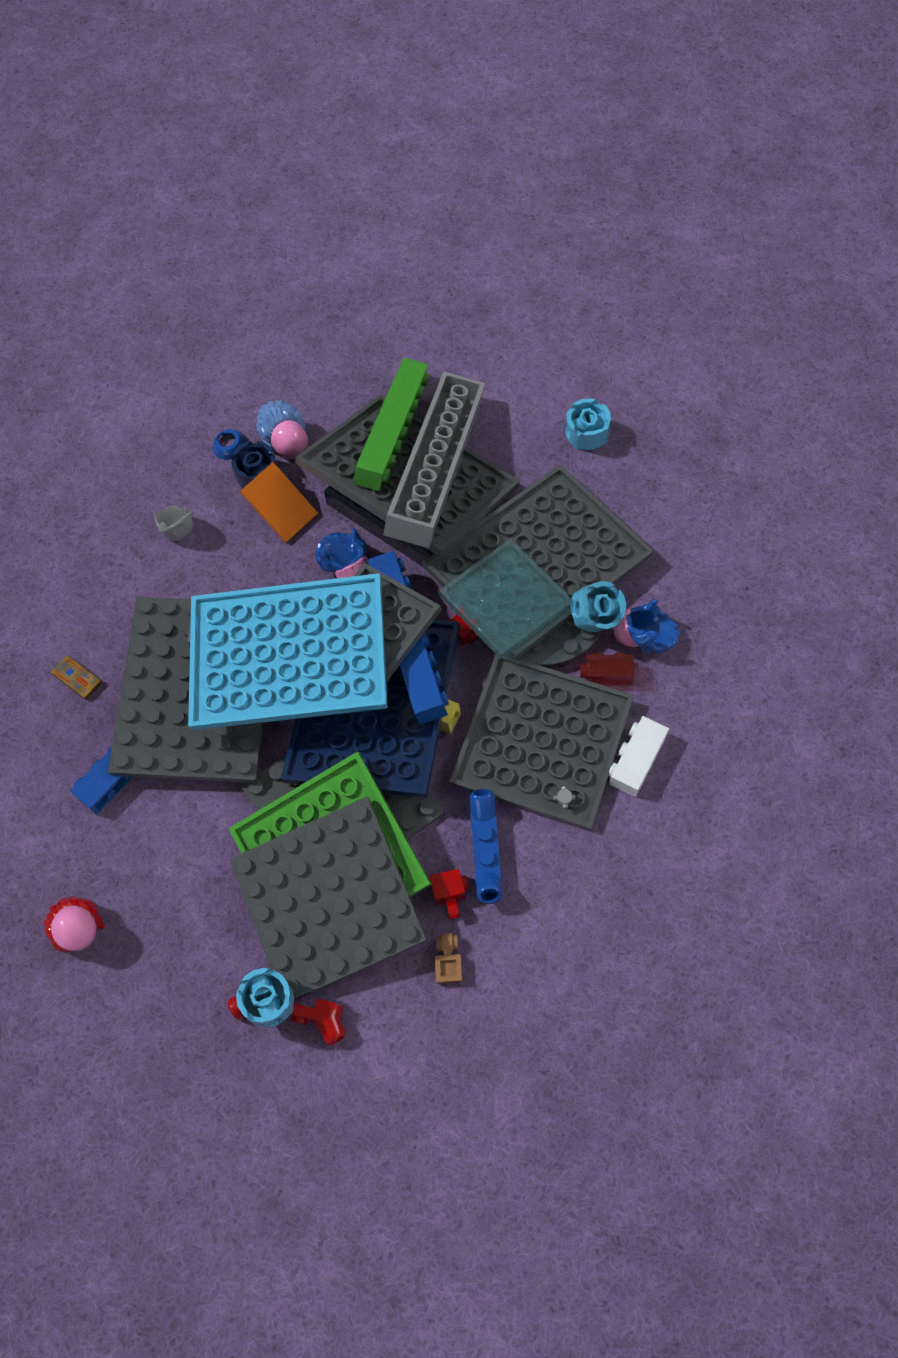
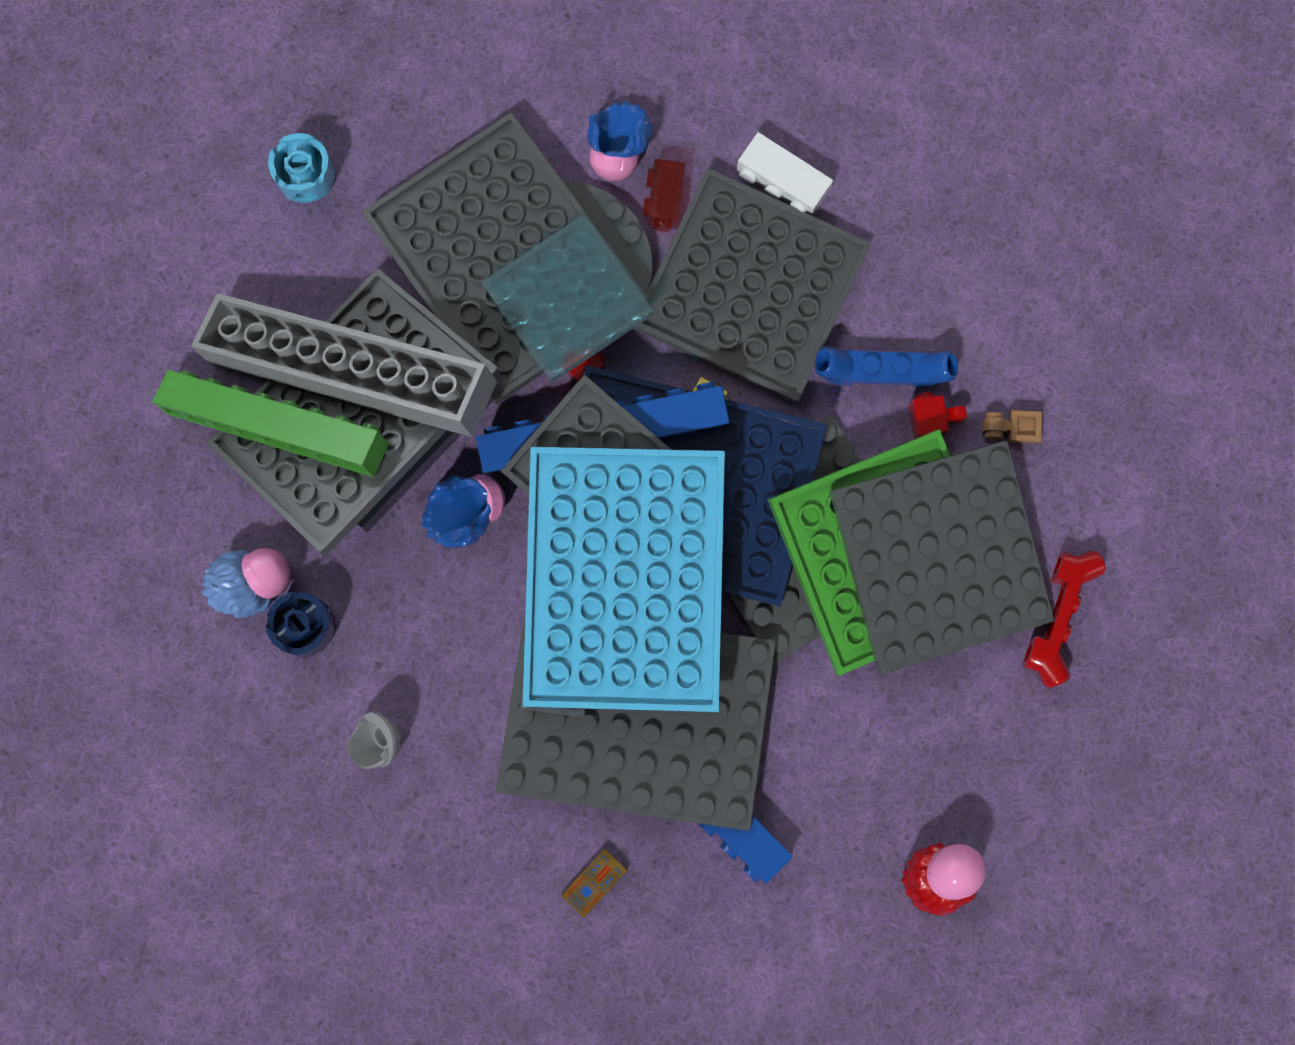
camera: 90 degrees left, 15 degrees up
(226, 452) = (264, 664): blue piece -> none
(265, 998) = (1064, 633): medium azure brick -> none
(278, 502) = (366, 593): orange tile -> none
(564, 797) = (832, 267): light grey piece -> none
(598, 606) = (594, 186): medium azure brick -> none

